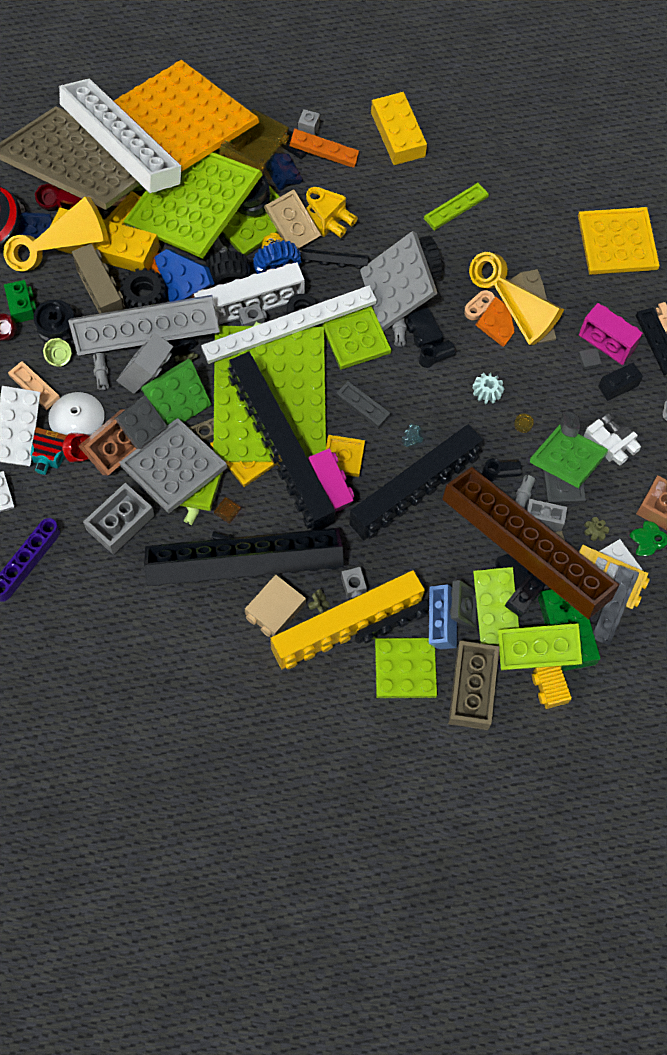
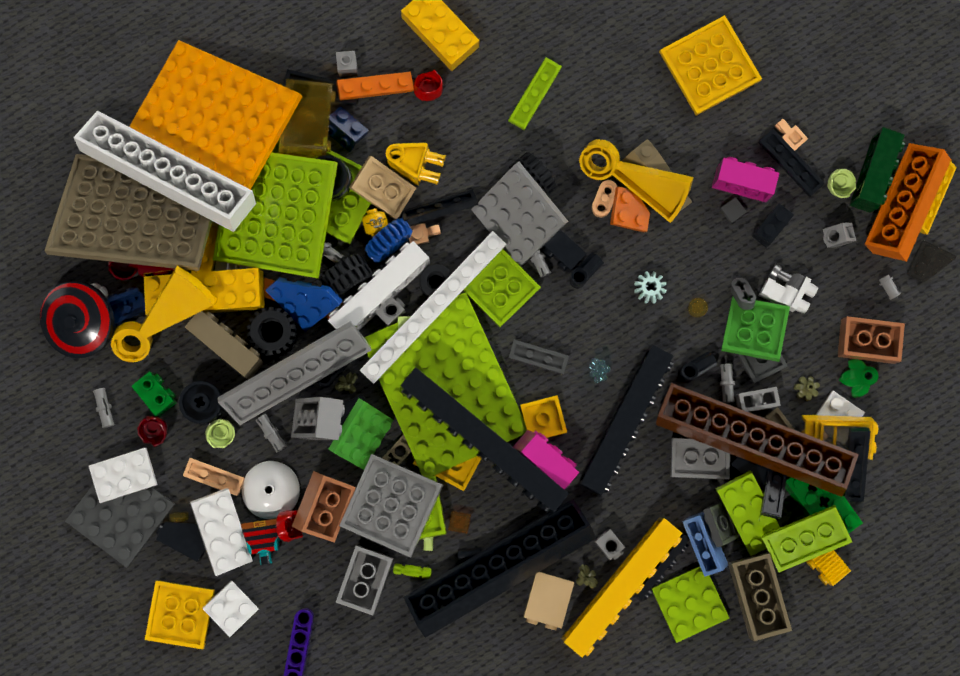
camera: 25 degrees left, 15 degrees up
(140, 422) = (342, 480): dark grey plate -> none
(164, 532) = (410, 570): none -> lime axle
(309, 271) = (421, 233): none -> light nougat plate
(368, 166) = (428, 86): none -> red hair
(468, 546) = (698, 460): none -> light grey plate

